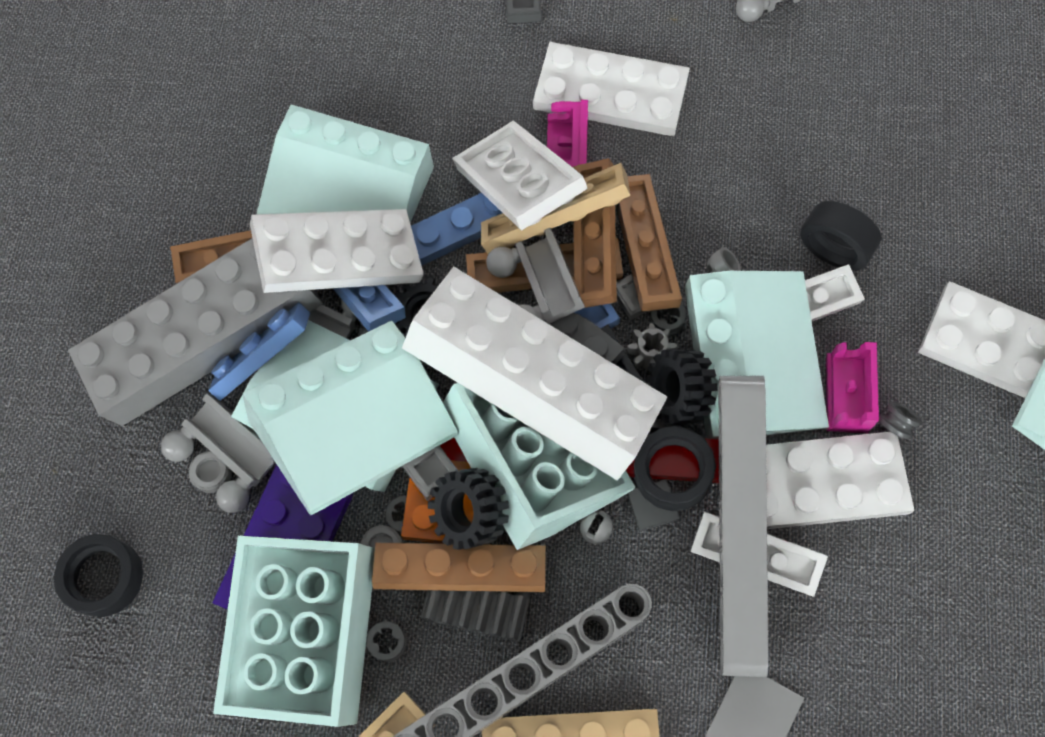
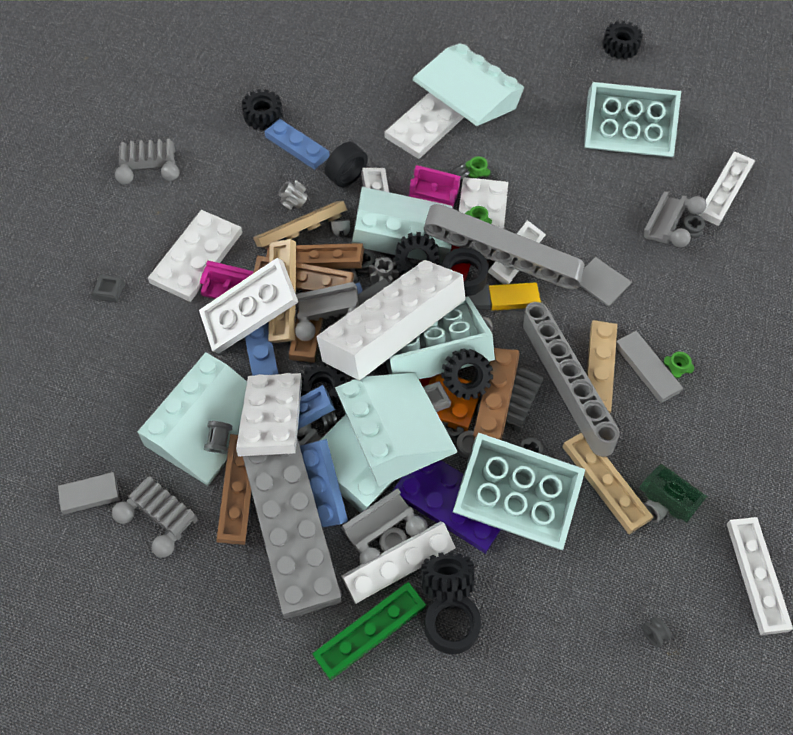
camera: 85 degrees left, 10 degrees down
(80, 469) = (369, 631): none -> green plate
(139, 571) = (447, 577): none -> black tyre
(178, 485) = (397, 562): none -> white plate
(210, 178) = (162, 509): none -> light grey gear
(220, 89) = (88, 493): none -> light grey tile
(307, 199) = (217, 437): none -> dark grey bush
(672, 566) = (513, 295): none -> yellow tile
(696, 198) = (310, 221): none -> tan plate
(756, 179) = (293, 195): none -> light grey gear
(804, 459) = (480, 213): none -> bright green plate
(872, 158) = (297, 144): none -> medium blue plate
(926, 71) = (258, 101): none -> black tyre
(937, 445) = (478, 167): none -> bright green plate

